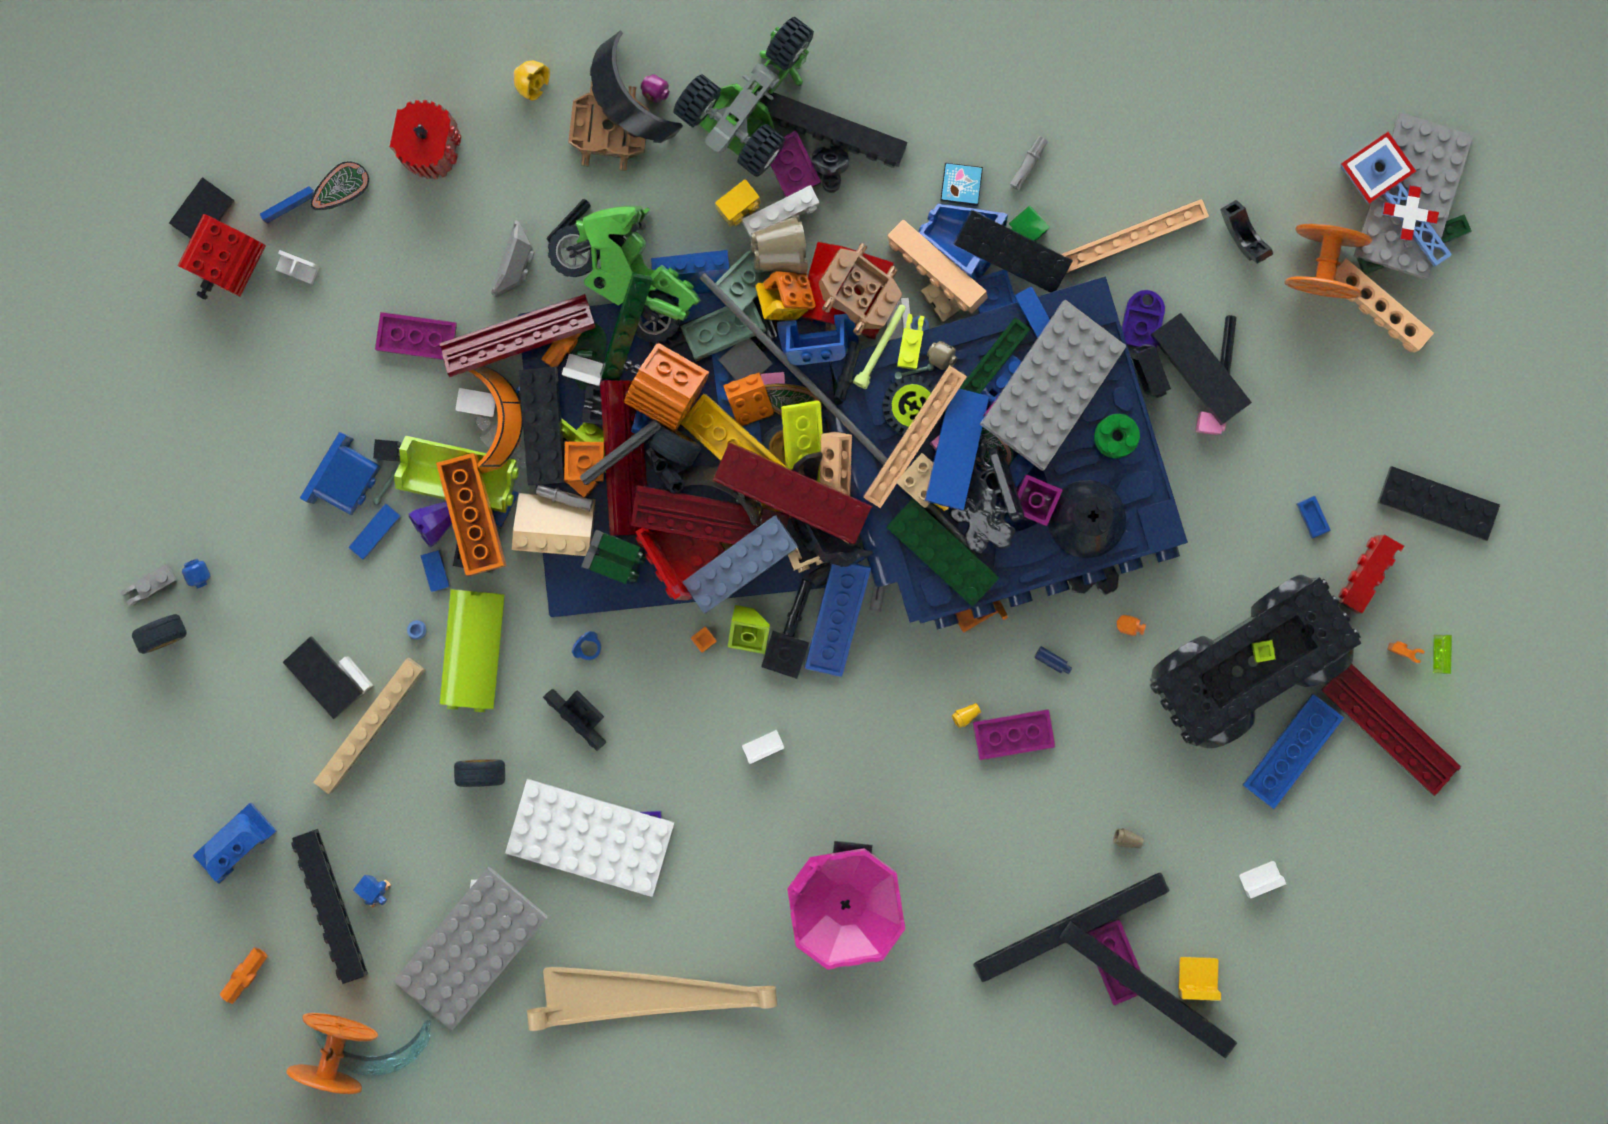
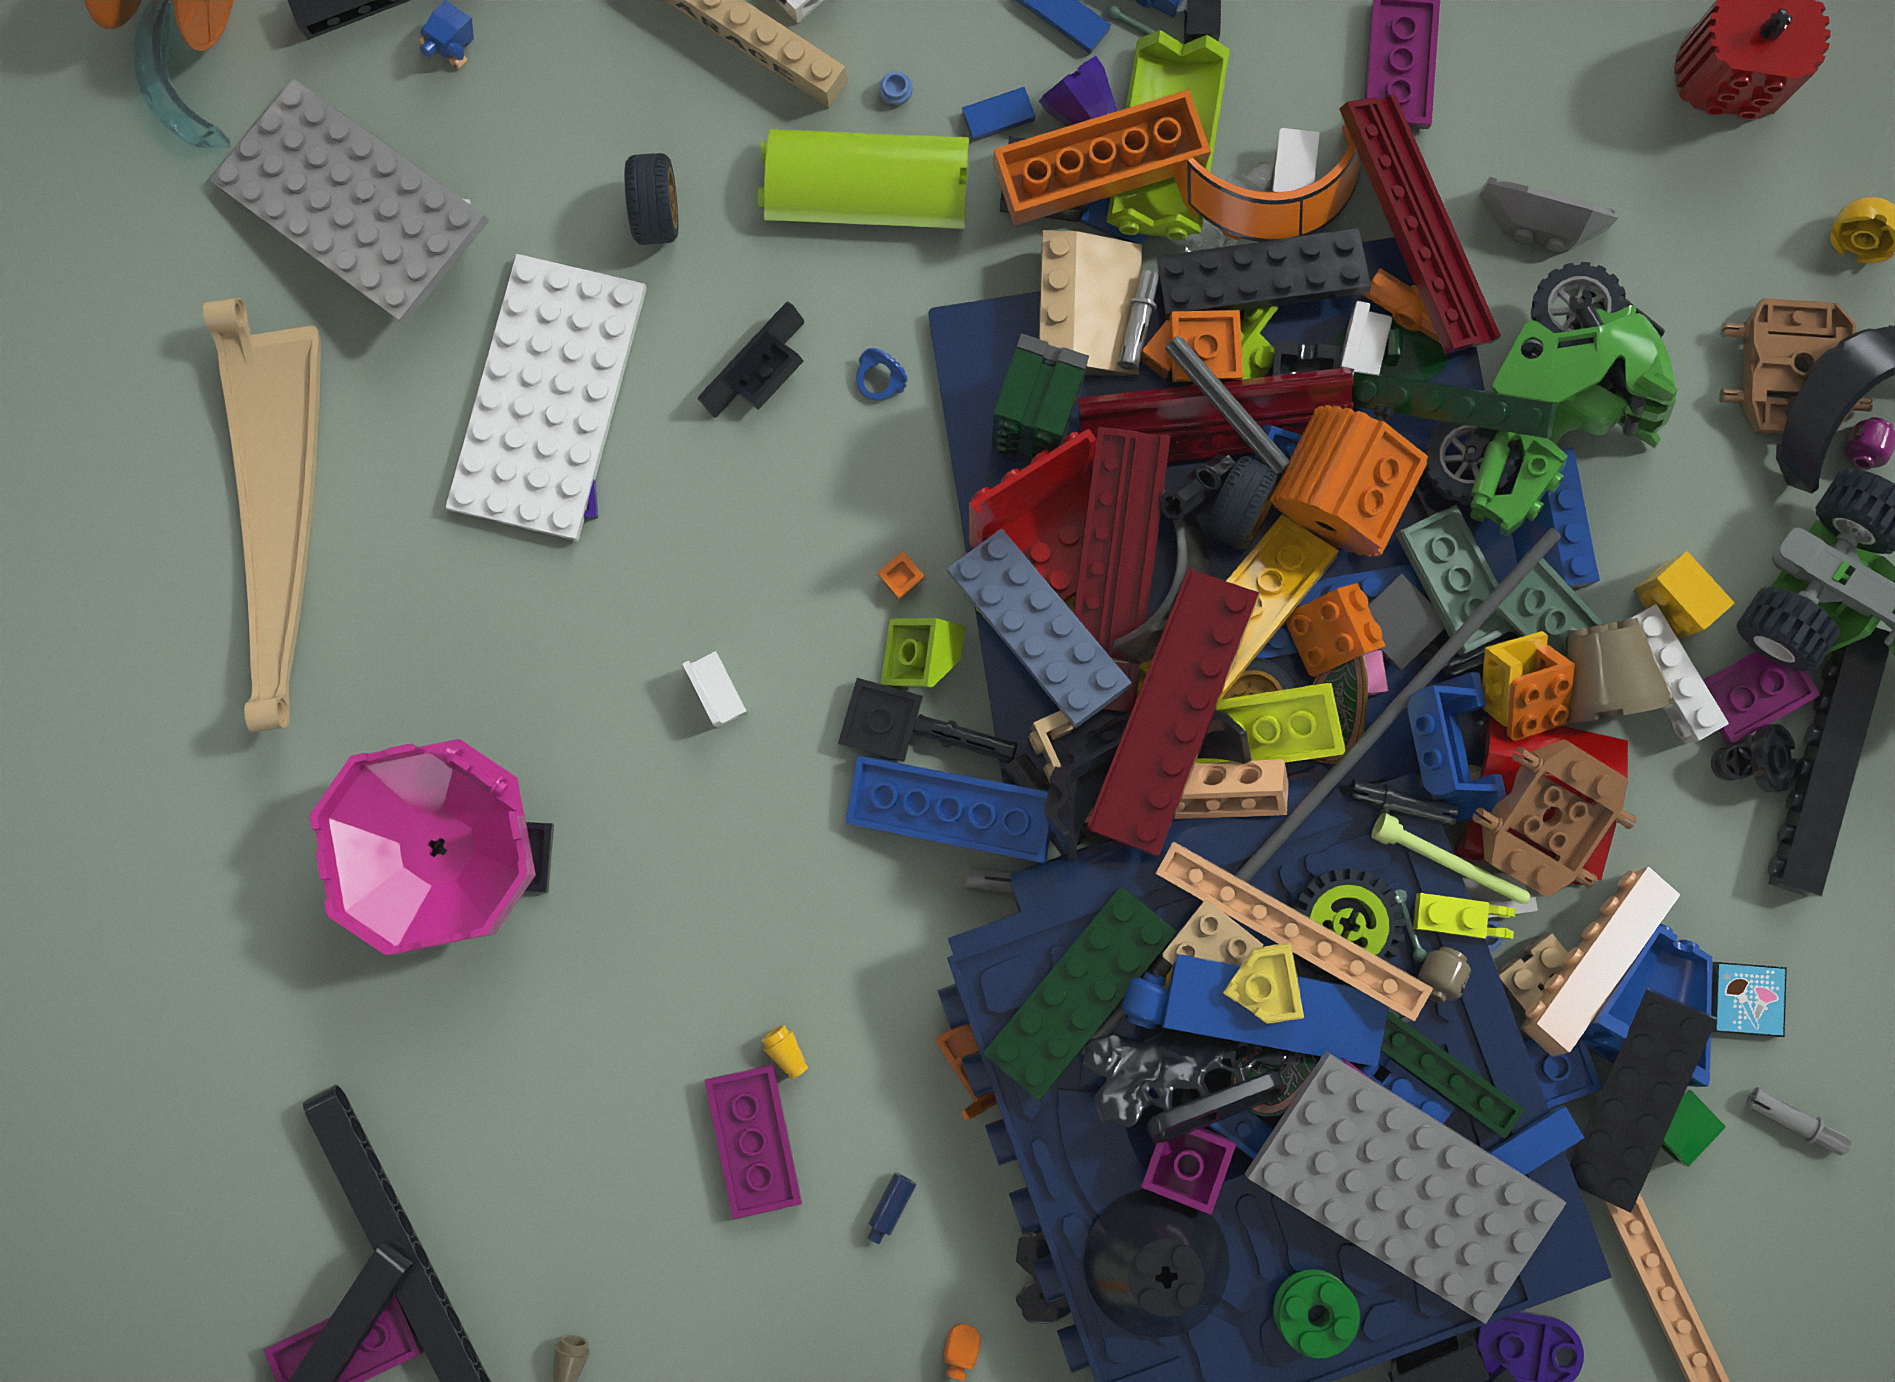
camera: 90 degrees right, 5 degrees down
(943, 452) = (1268, 984): none -> light yellow plate
(948, 517) = (1145, 1000): none -> blue head

